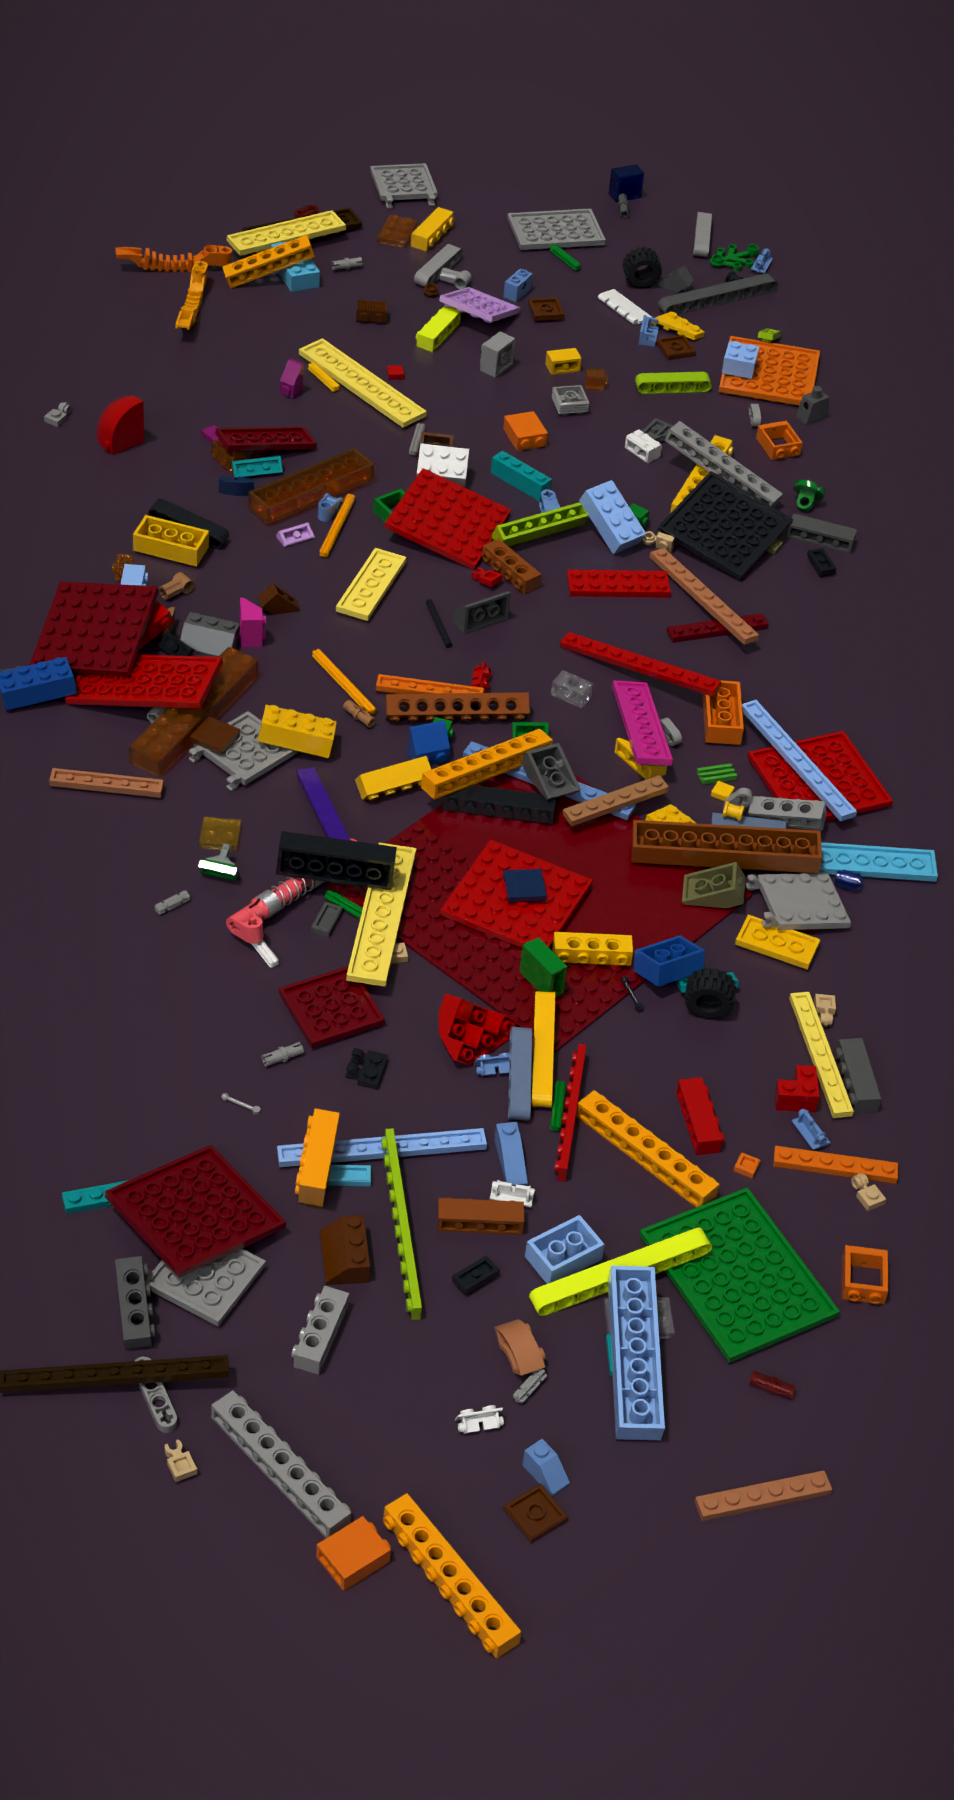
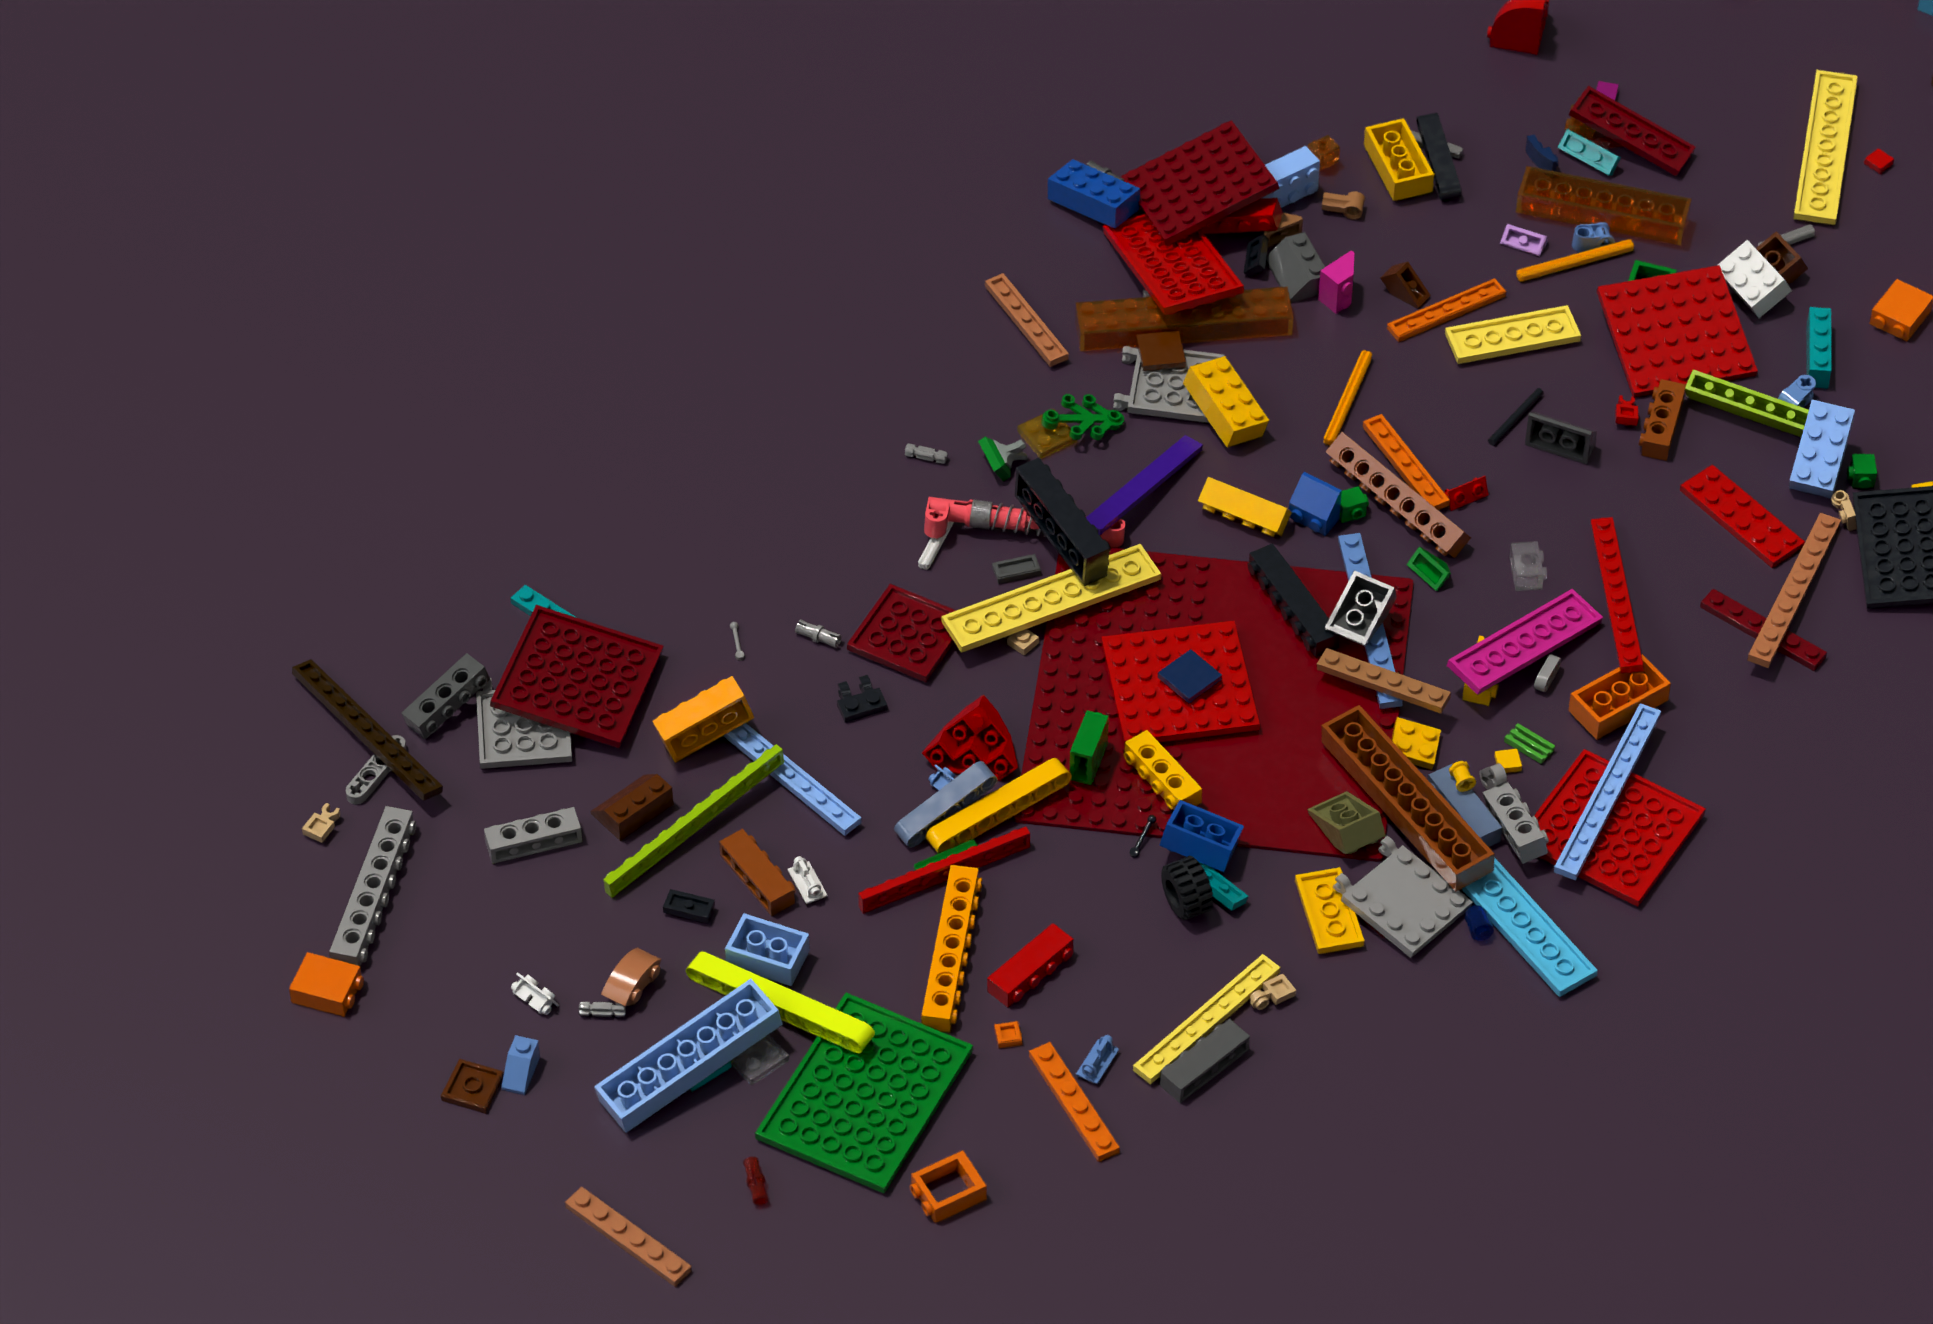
camera: 60 degrees right, 5 degrees up
(242, 795) = (1109, 418): none -> green plant
(292, 379) = (1752, 94): magenta slope -> none
(316, 599) = (1446, 310): none -> orange tile
(323, 376) = (1800, 114): yellow axle -> none
(347, 905) = (1047, 562): green axle -> none
(350, 1175) = (723, 758): medium azure tile -> none
(359, 713) = (1311, 442): medium nougat pin -> none
(481, 764) = (1319, 554): light orange brick -> none
(494, 1641) = (357, 1060): light orange brick -> none
(511, 1153) = (850, 854): medium blue slope -> none
(798, 1093) = (1134, 1027): red brick -> none
(868, 1196) = (1058, 1148): tan plate -> none

